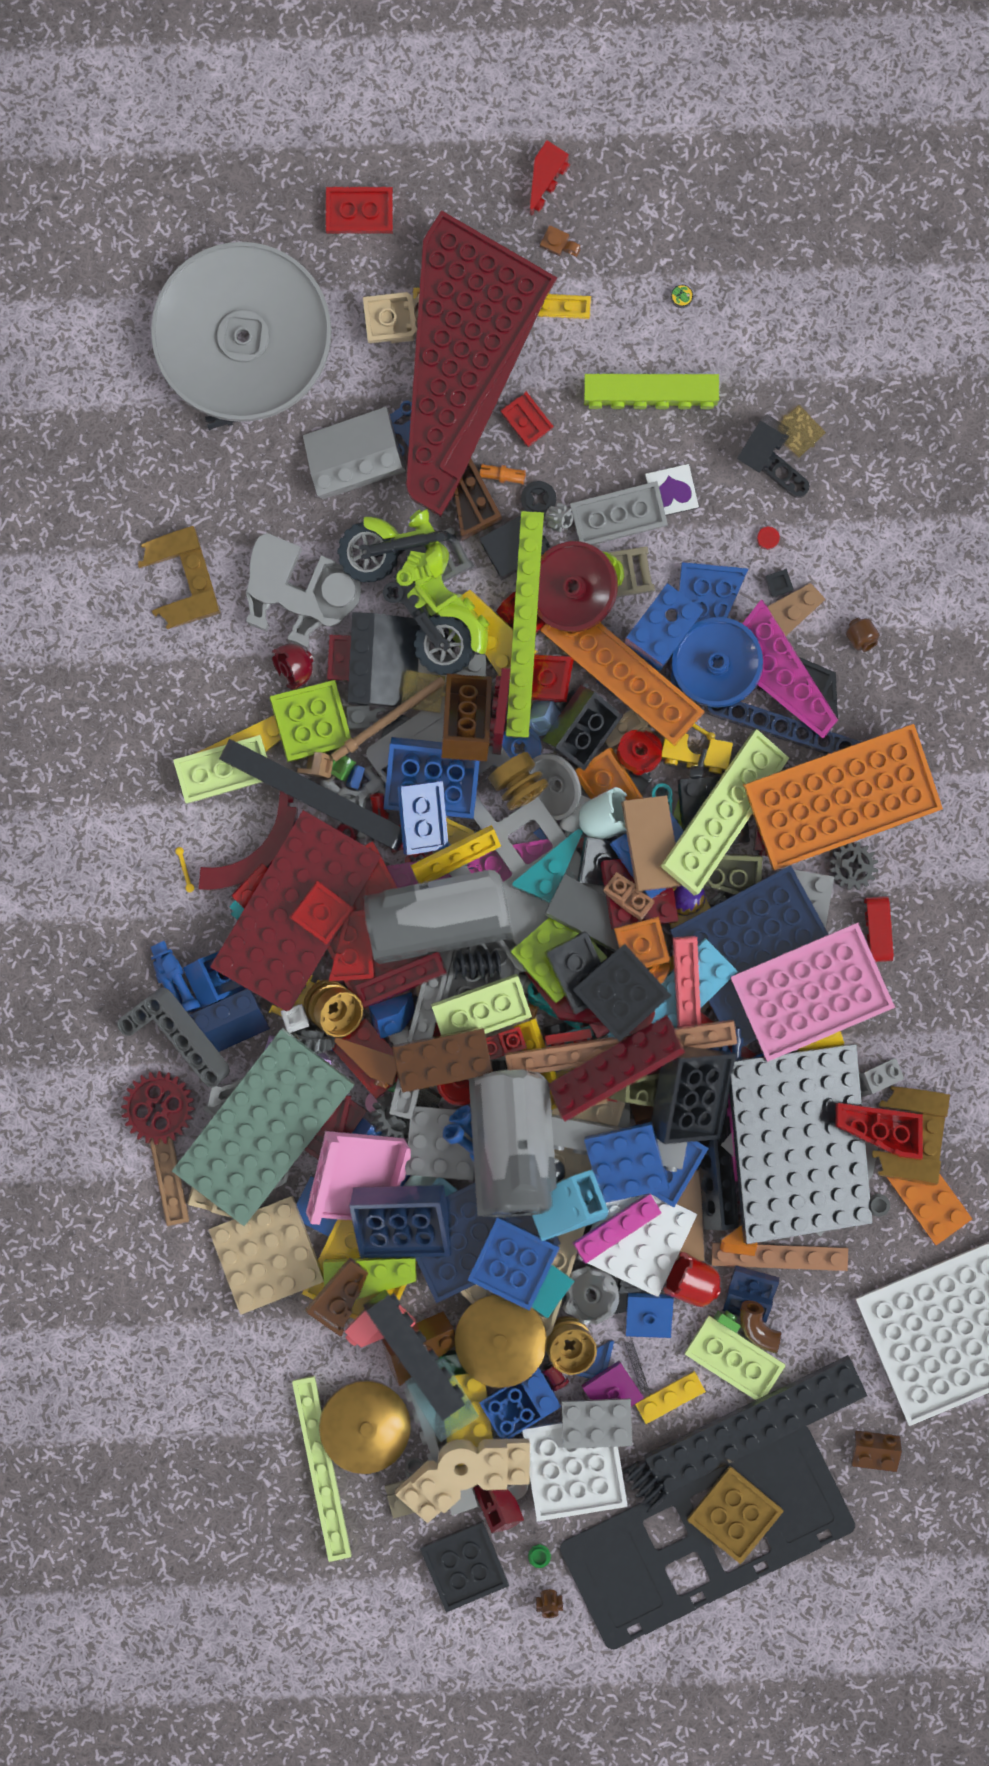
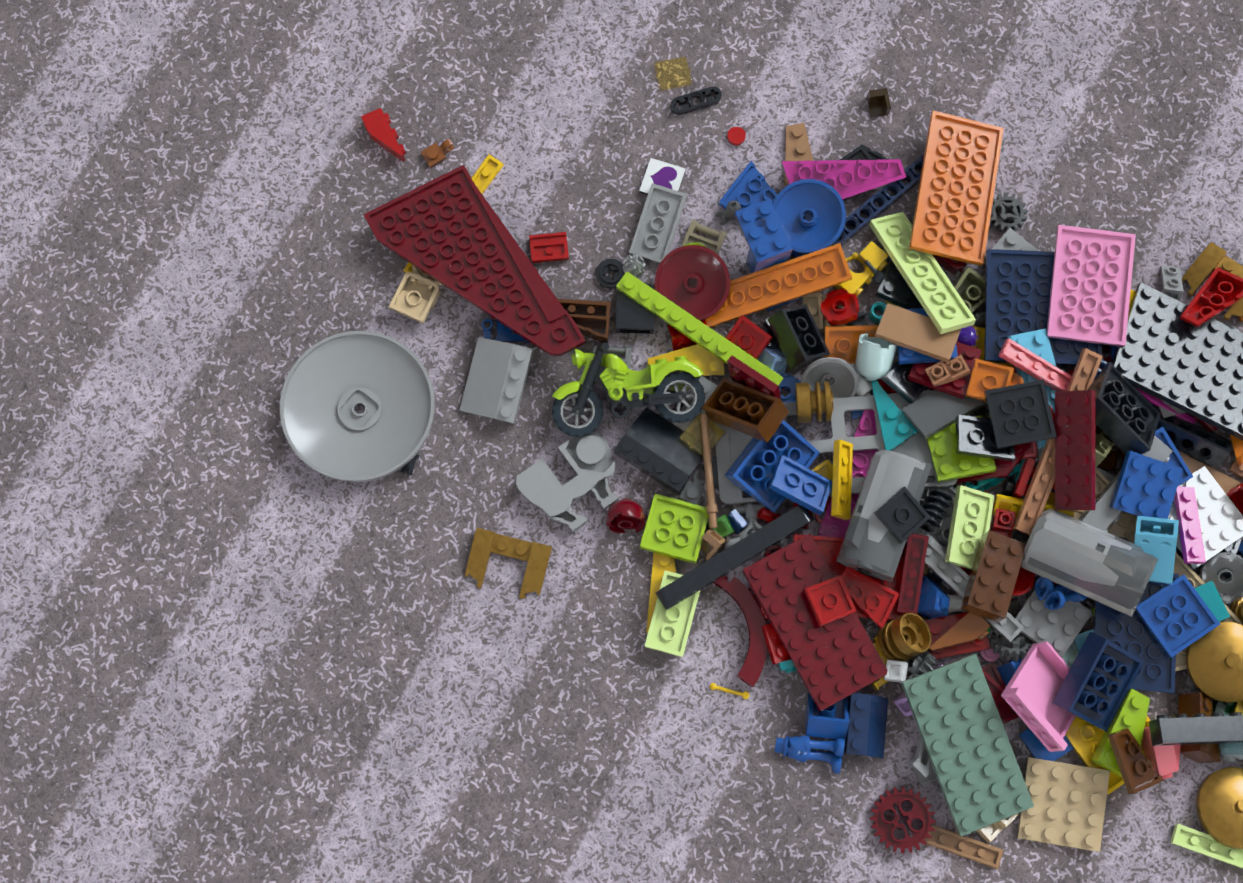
camera: 60 degrees left, 10 degrees down
(181, 1031) = (852, 763): dark grey beam -> none
(339, 657) = (640, 480): dark red plate -> none
(359, 210) = (322, 274): red plate -> none
(439, 931) = (902, 515): none -> black tile
(503, 474) = (578, 285): orange pin -> none
(651, 390) = (582, 151): lime brick -> none
(680, 580) = (732, 207): none -> dark grey arm
(681, 296) = (528, 94): tile -> none
(763, 442) = (670, 96): black brick -> none
(779, 583) = (773, 146): black plate -> none
(862, 634) = (844, 112): reddish brown head -> none
(880, 929) = (1053, 216): red beam -> none
(896, 663) = (878, 102): none -> dark brown panel

